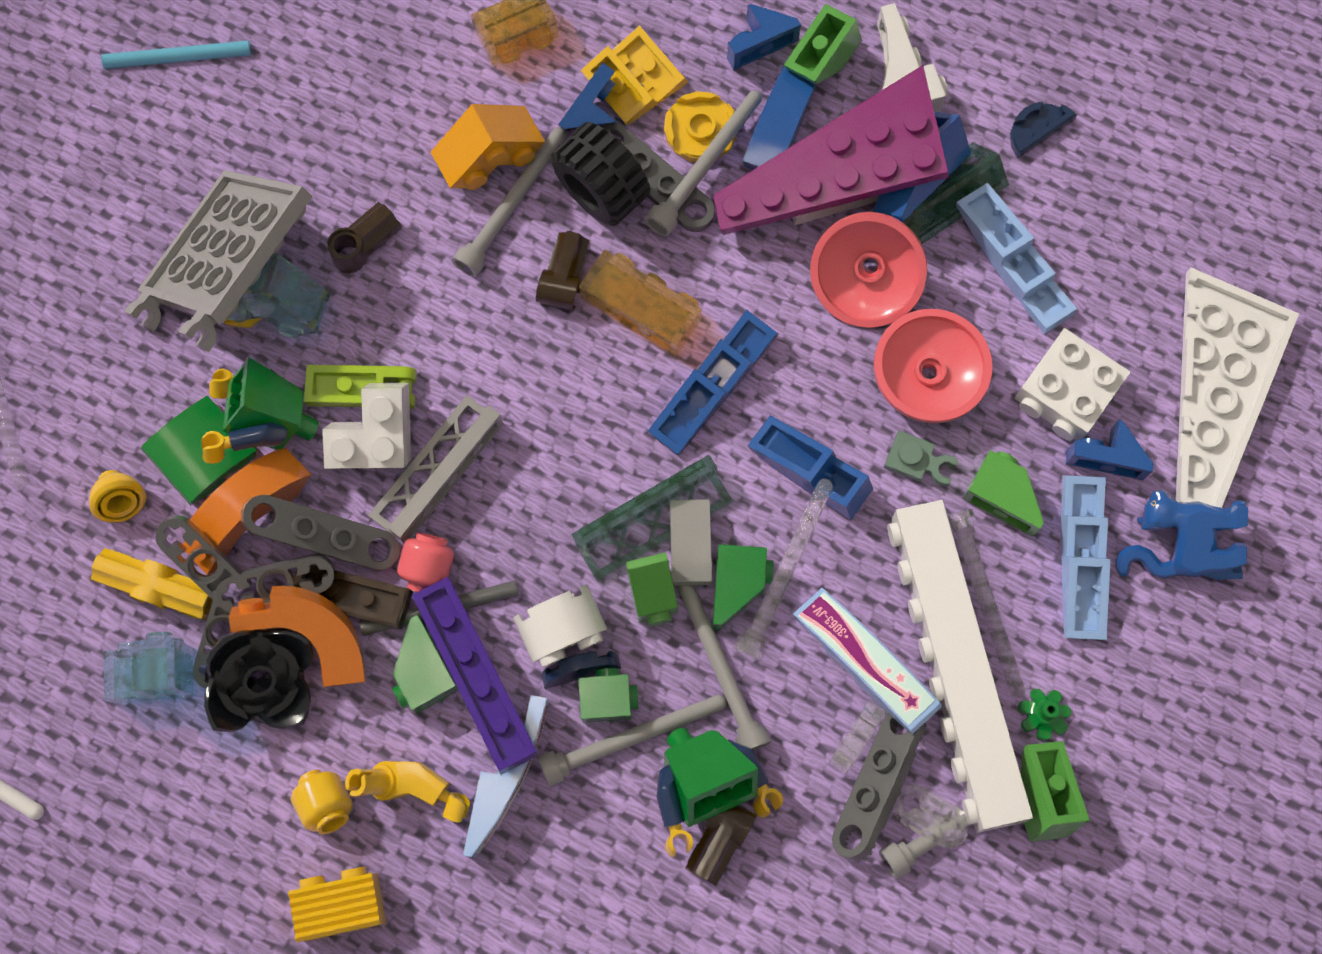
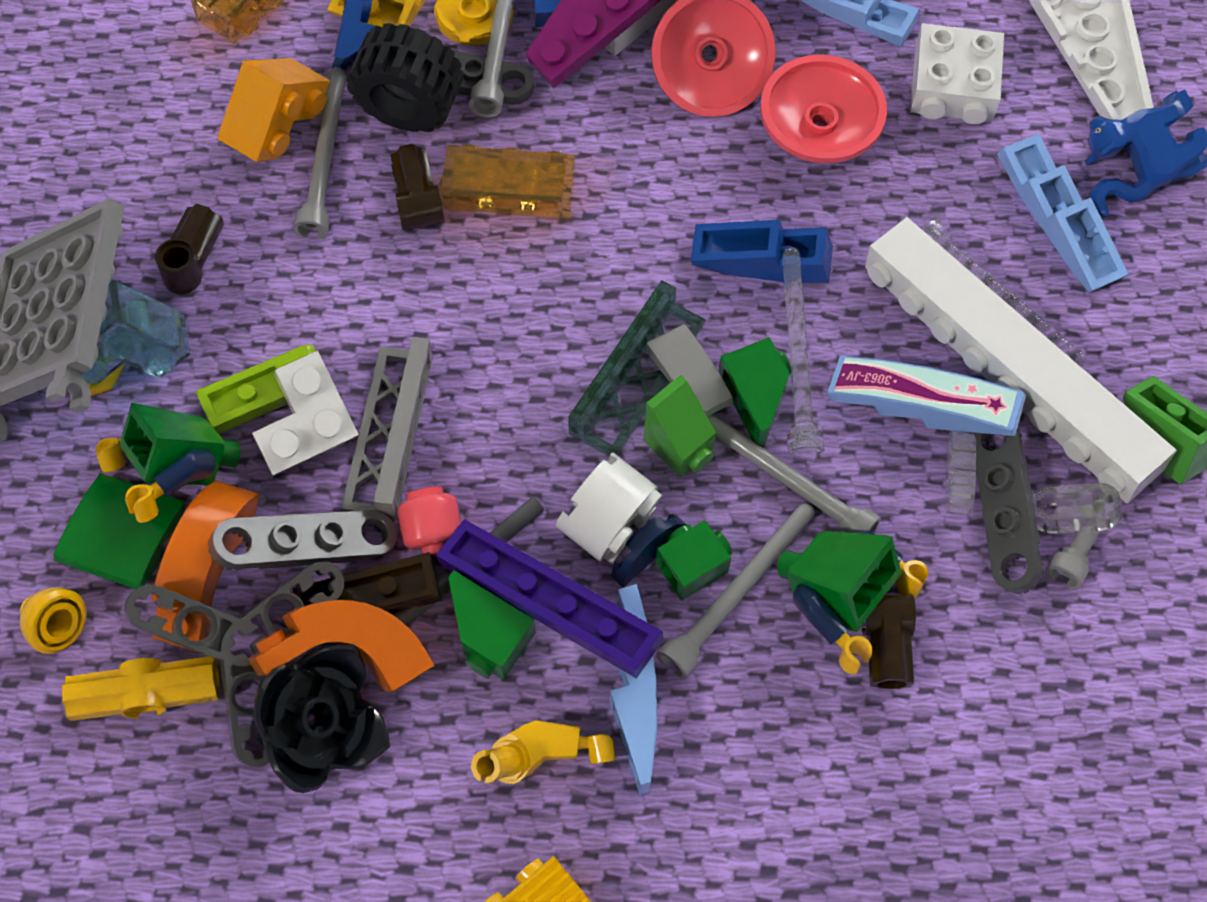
camera: 30 degrees left, 10 degrees down
(149, 670) = (189, 778): clear light blue brick -> none
(321, 801) = (454, 816): yellow head -> none
(712, 382) = (621, 222): blue slope -> none
(913, 458) = (853, 203): sand green plate -> none
(1005, 492) = (958, 190): bright green slope -> none
(1040, 718) = (1116, 367): green plant -> none
(1121, 457) = (1034, 112): blue slope -> none

